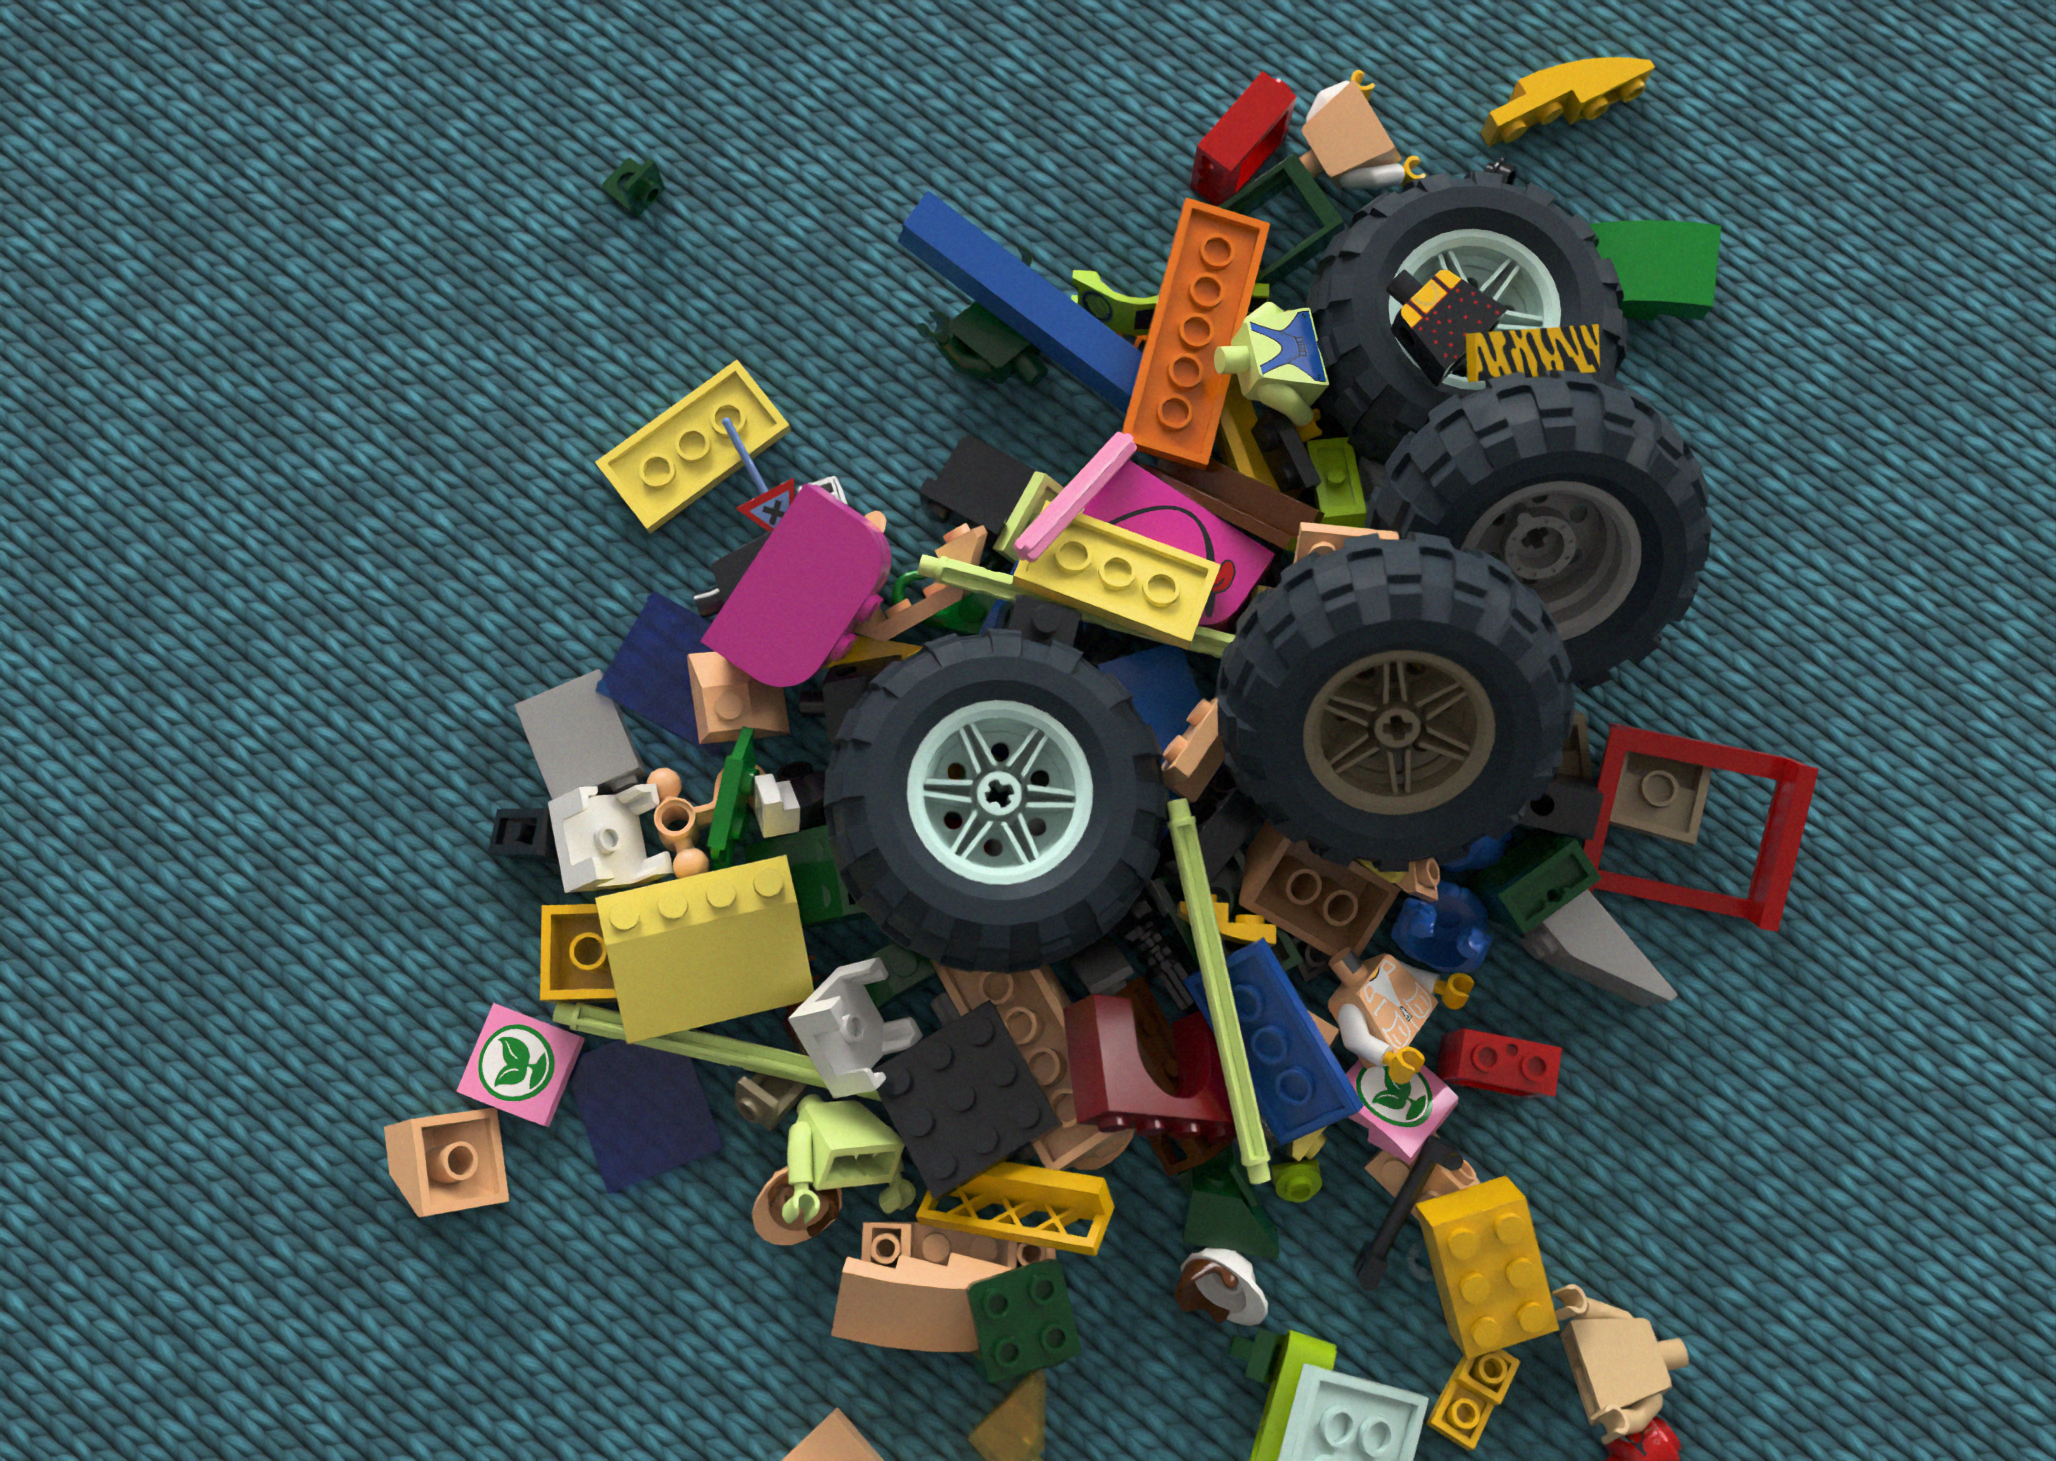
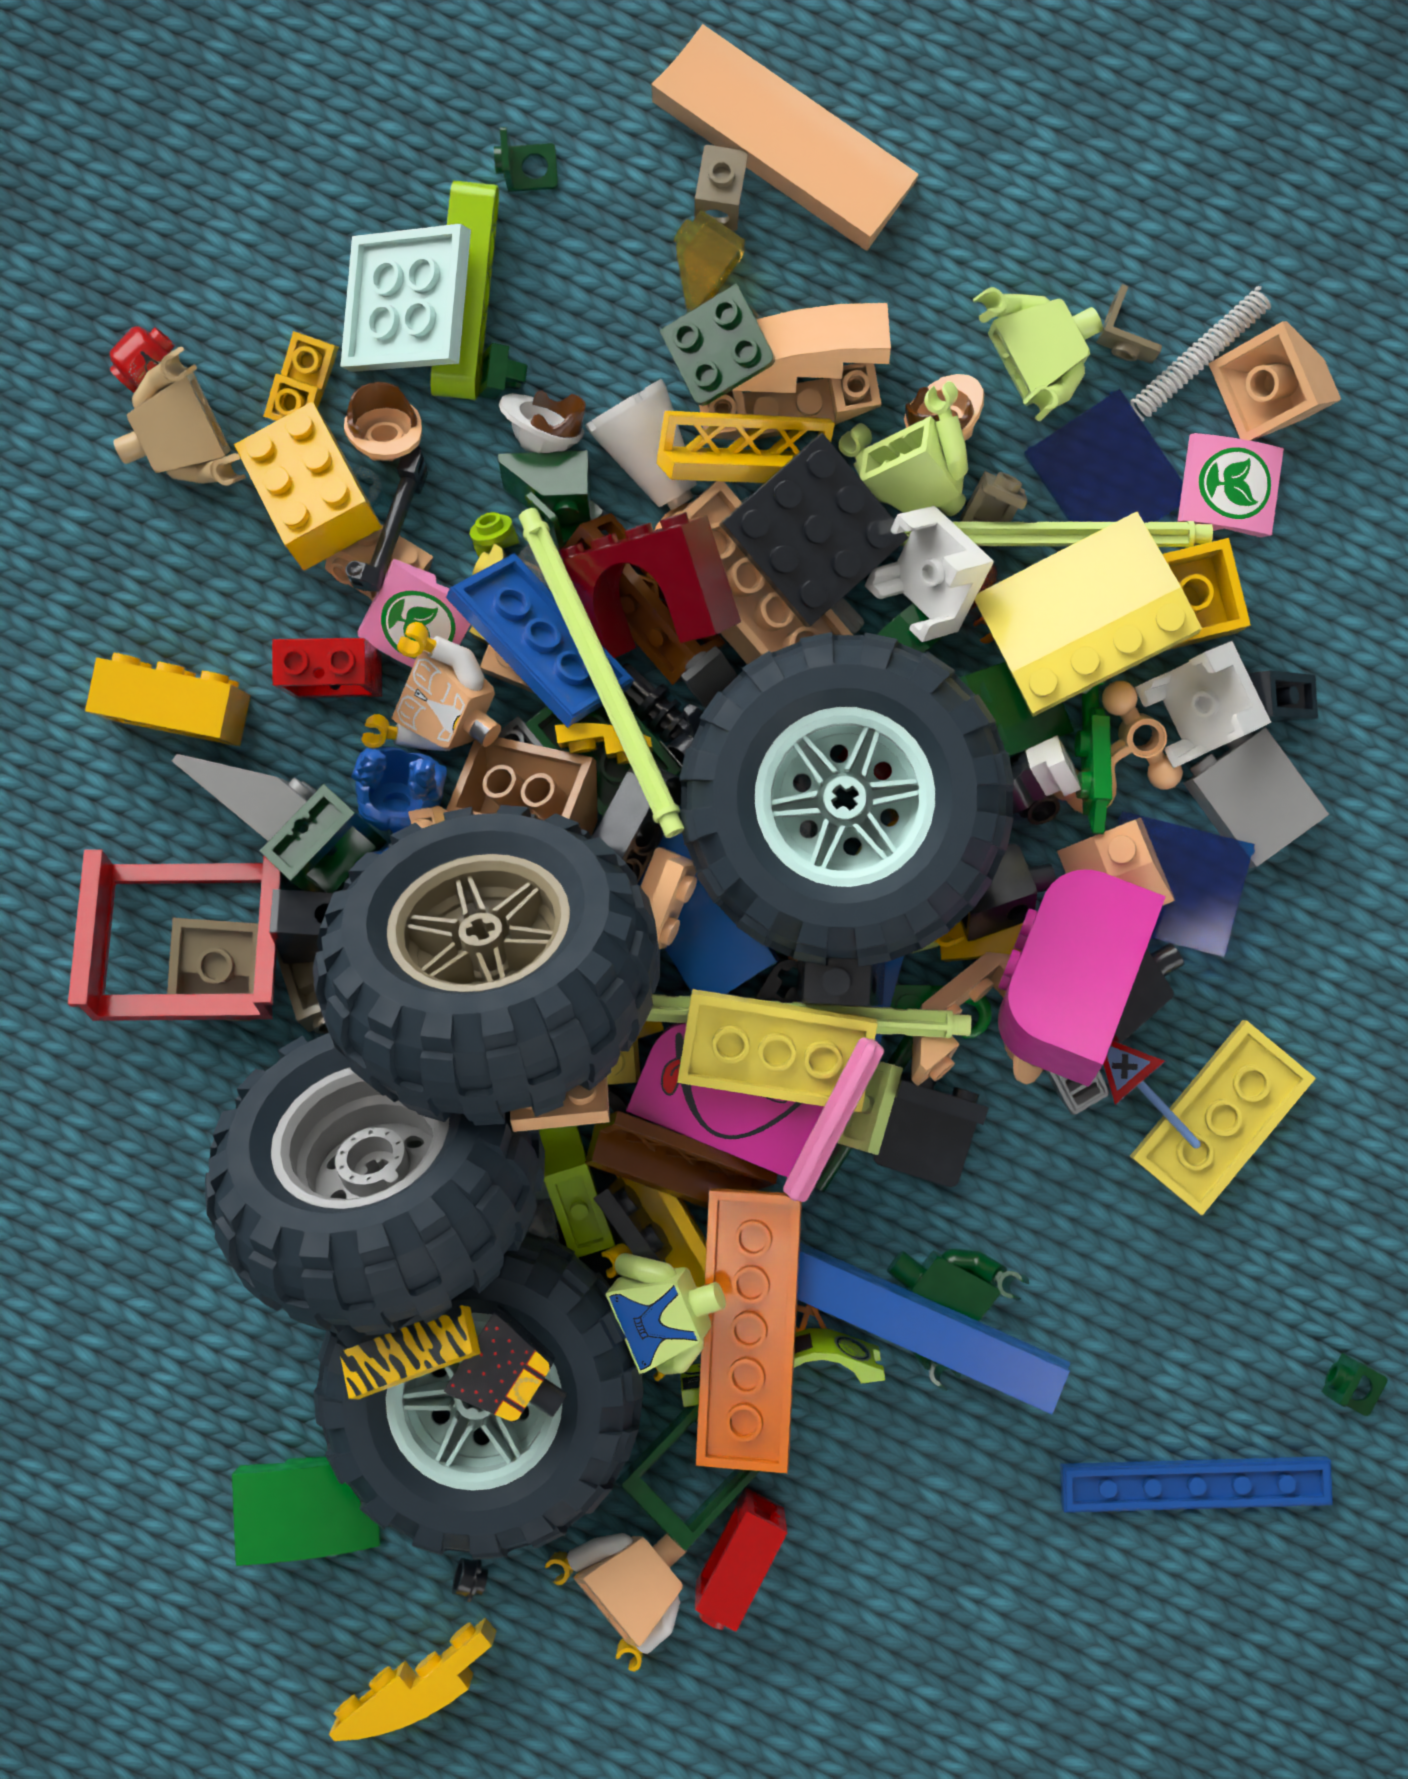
camera: 170 degrees right, 10 degrees up
(446, 1246) = (1185, 371): none -> white piece
(592, 1237) = (1124, 344): none -> dark tan bracket
(679, 1254) = (1040, 344): none -> yellowish green torso
(803, 130) = (1196, 1484): none -> blue tile
(1129, 1249) = (632, 438): none -> white cone
(1394, 1319) = (382, 422): none -> light nougat piece
(1669, 1067) = (168, 699): none -> yellow brick

